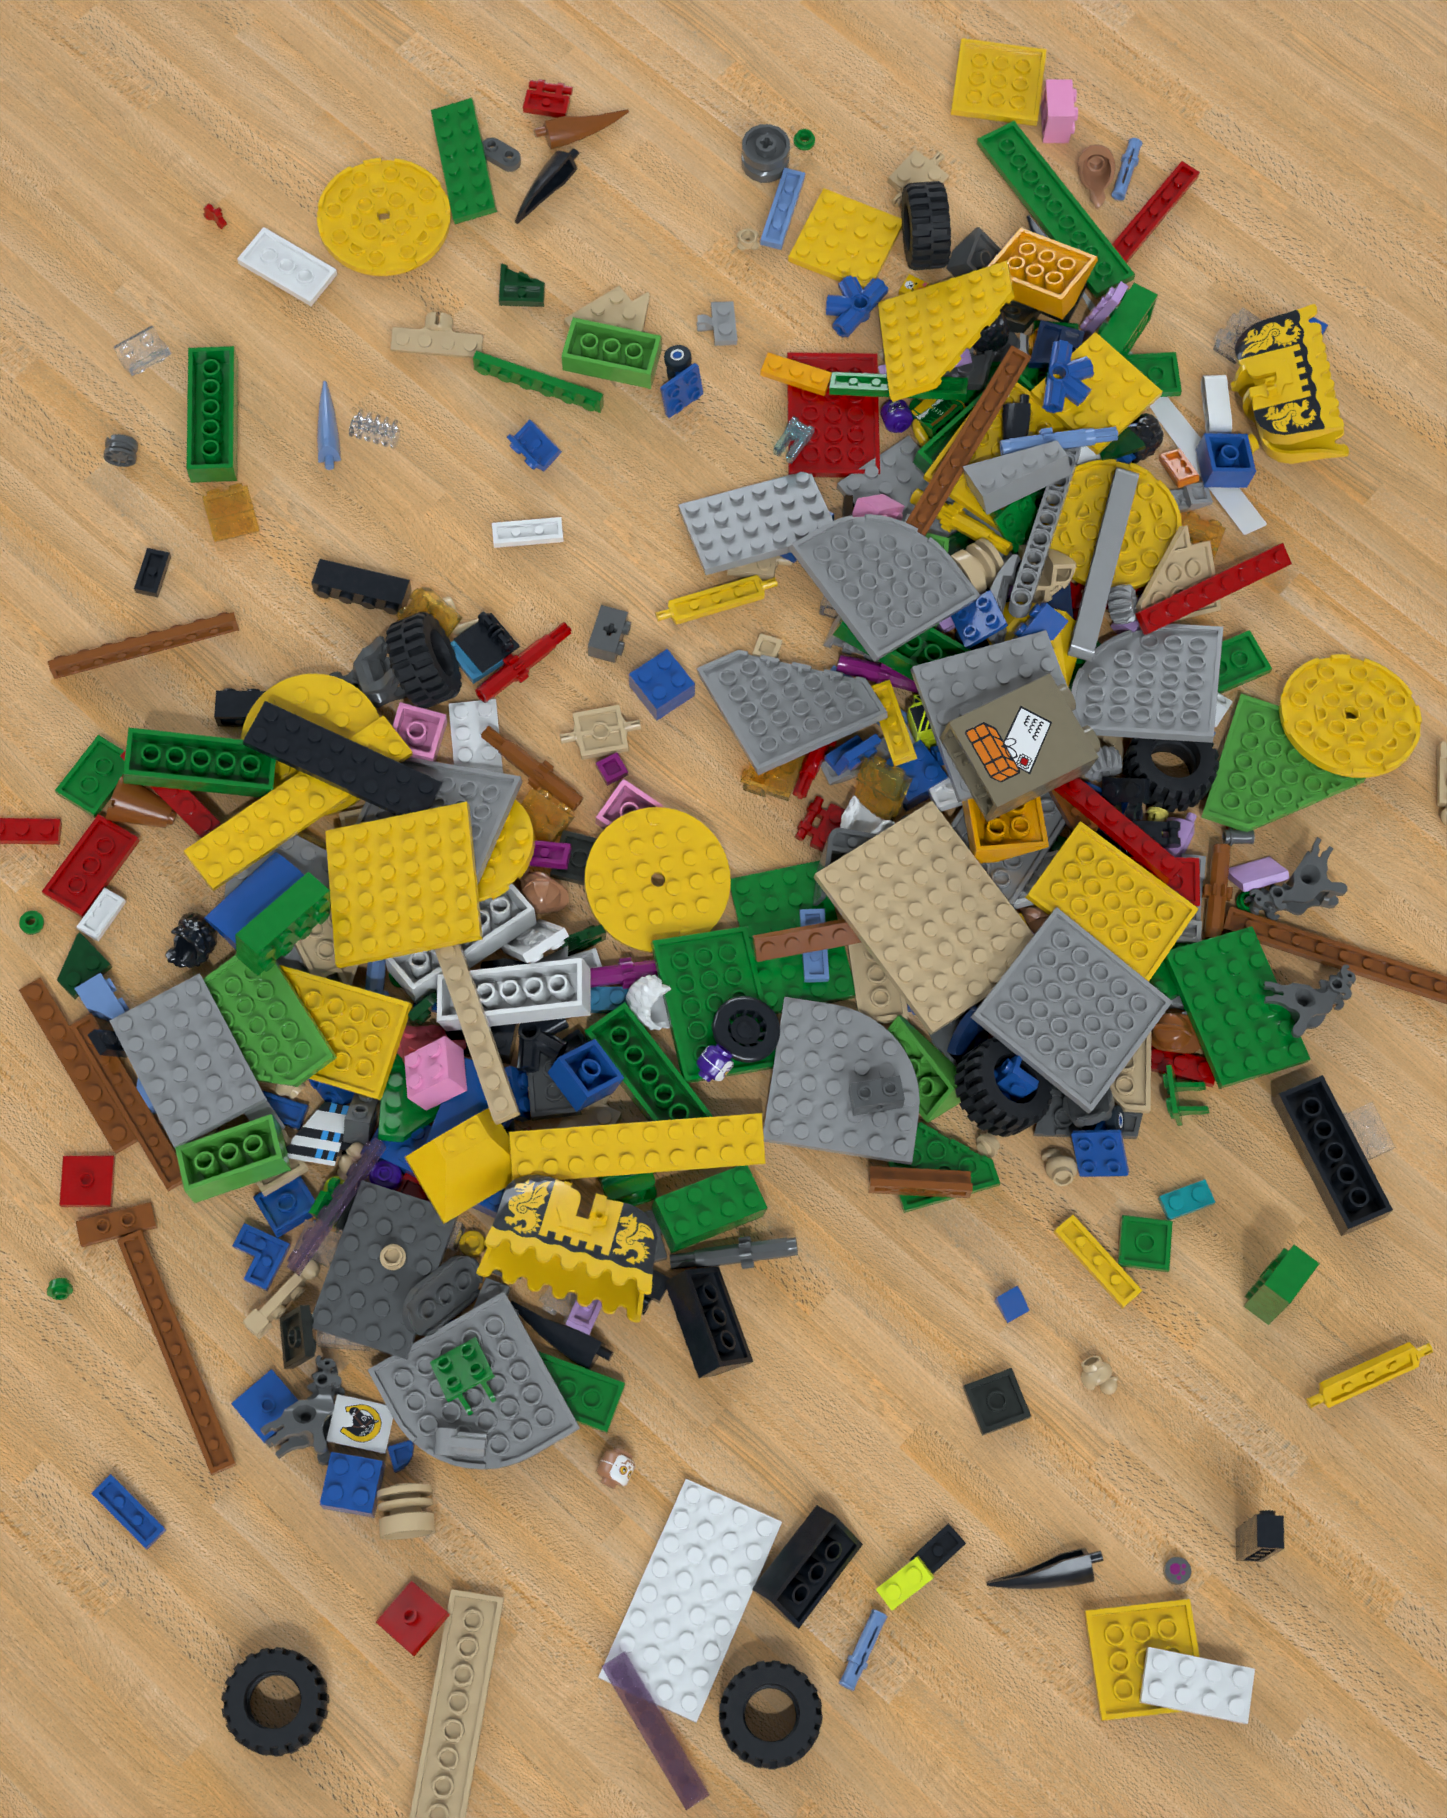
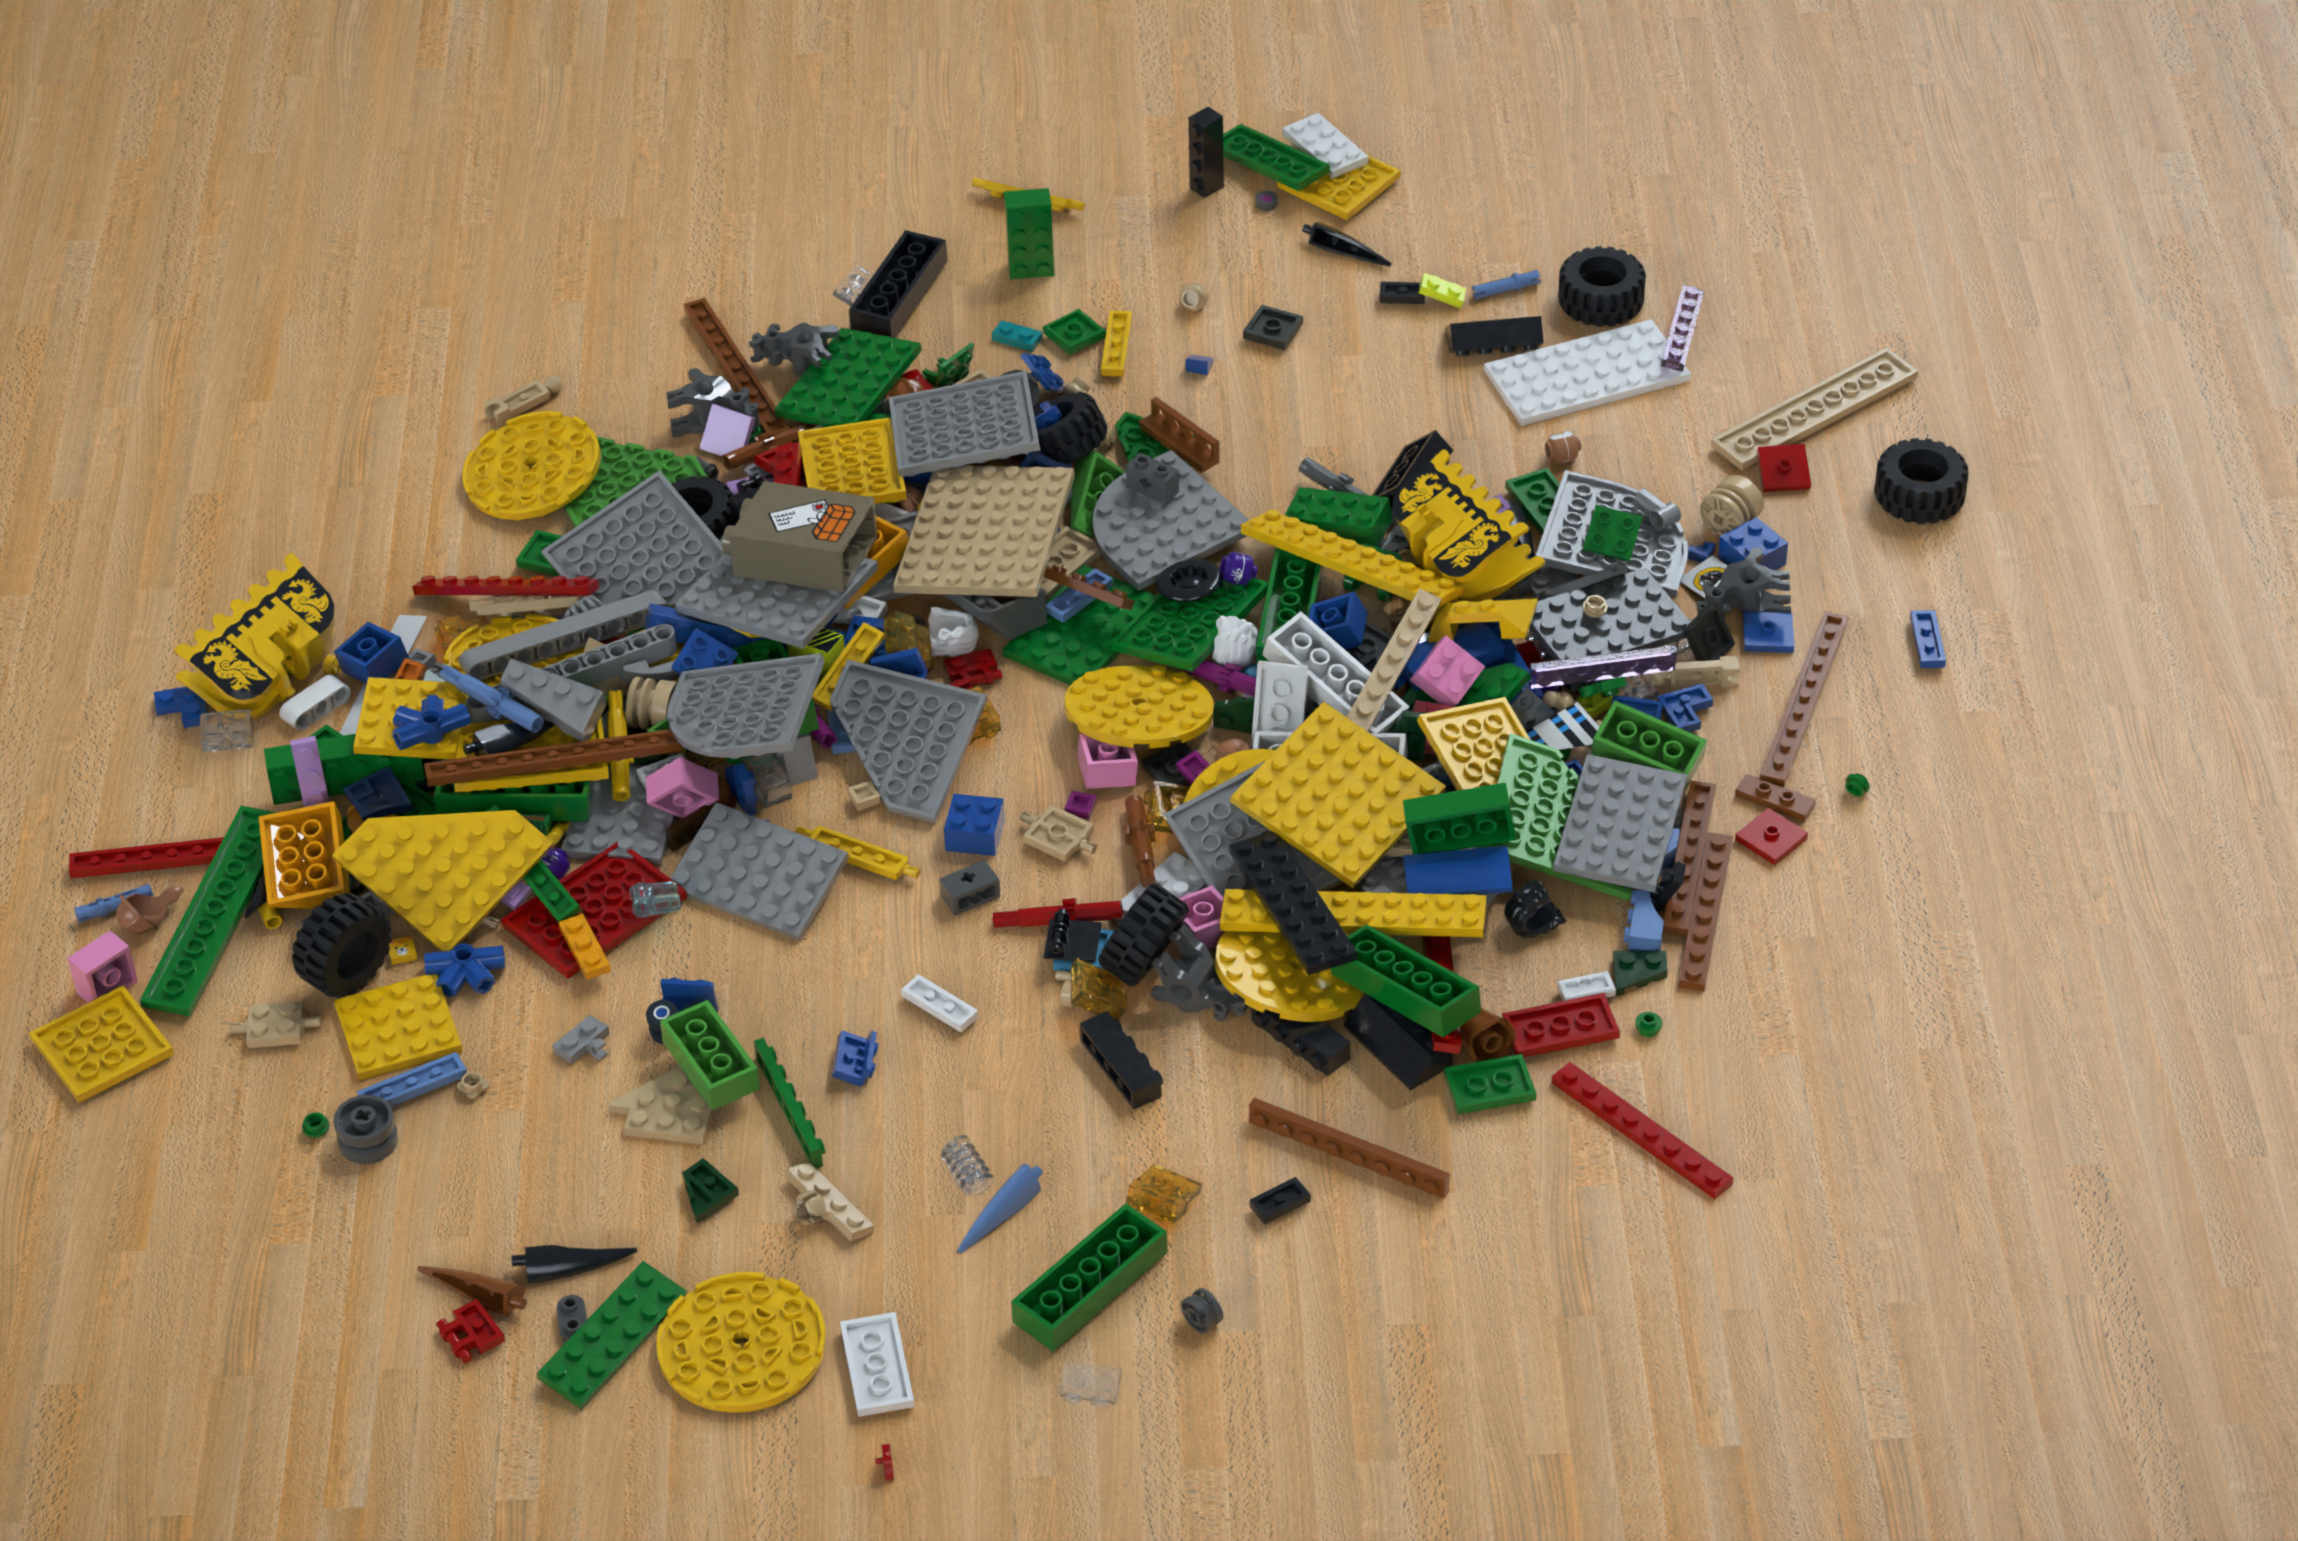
camera: 130 degrees left, 25 degrees down
(1225, 1619) = (1272, 158): none -> green plate

